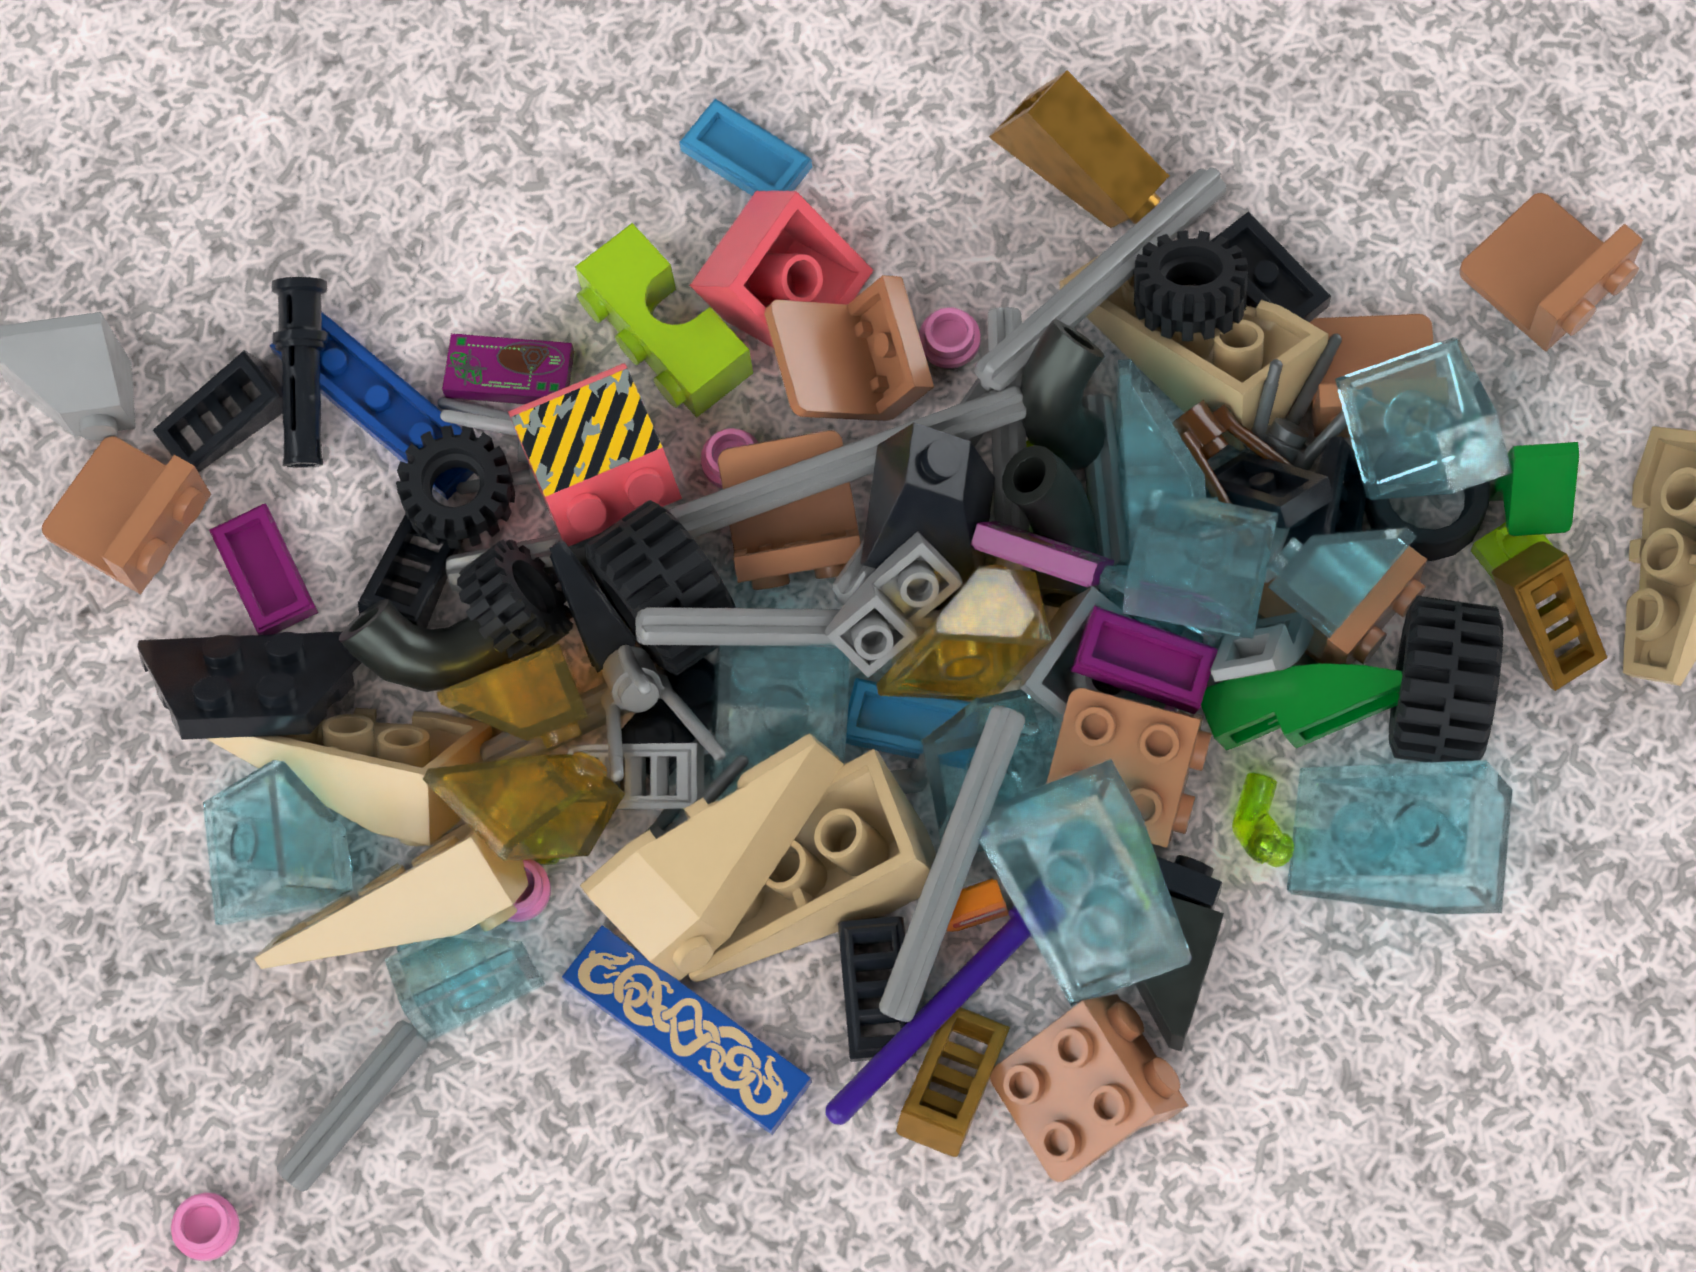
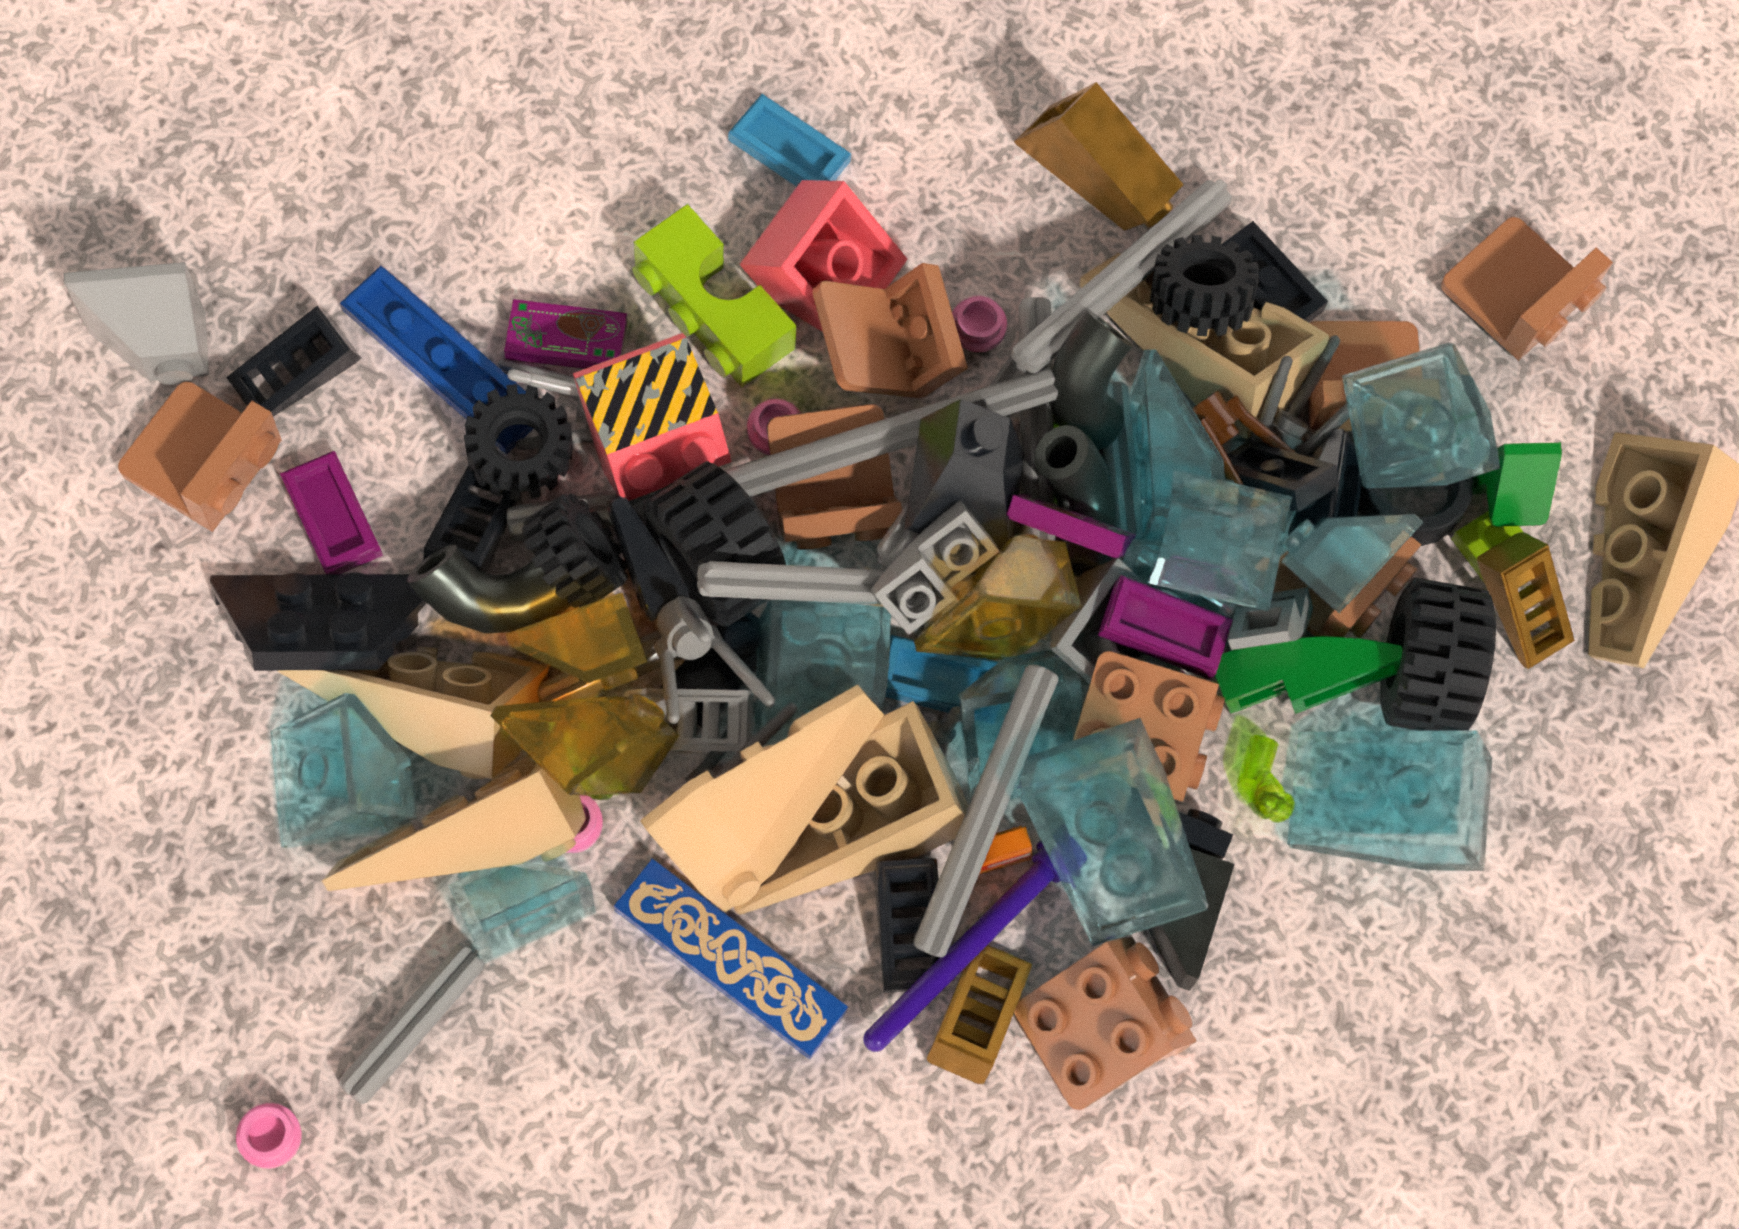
camera: 15 degrees left, 0 degrees up
(300, 341) = (371, 299): black pin -> none

